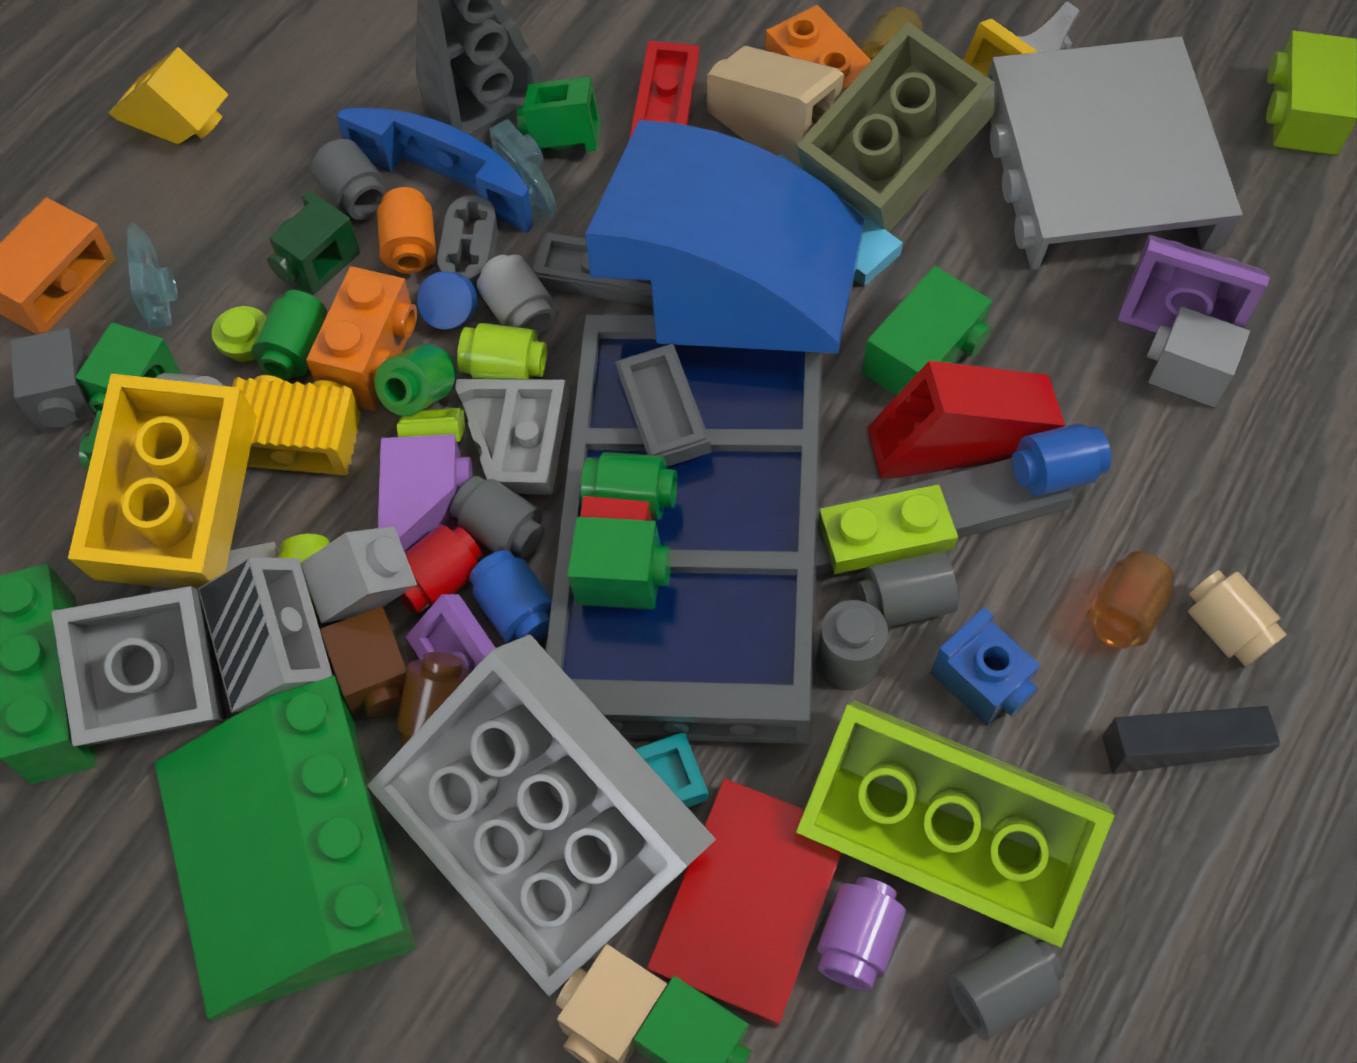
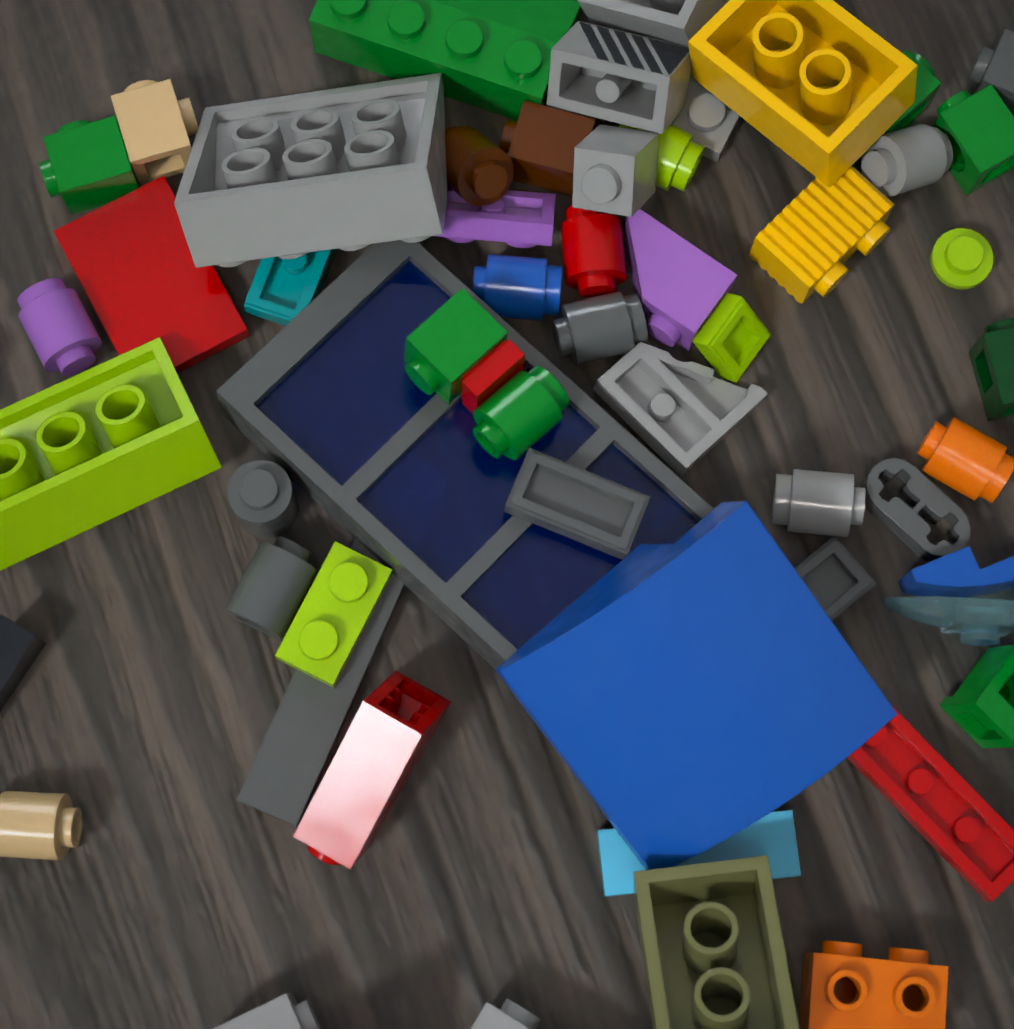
camera: 125 degrees right, 15 degrees up
(289, 334) = (919, 287): green brick -> none
(361, 331) = (866, 340): orange brick -> none
(415, 379) = (784, 350): green brick -> none
(447, 300) = (858, 442): blue tile -> none
(501, 352) = (761, 444): lime brick -> none
(771, 97) = (860, 900): tan slope -> none
(933, 323) = (483, 817): green brick -> none
(981, 689) = (176, 604): blue brick -> none
(1061, 459) = (268, 804): blue brick -> none
(1132, 600) = (113, 753): clear orange brick -> none

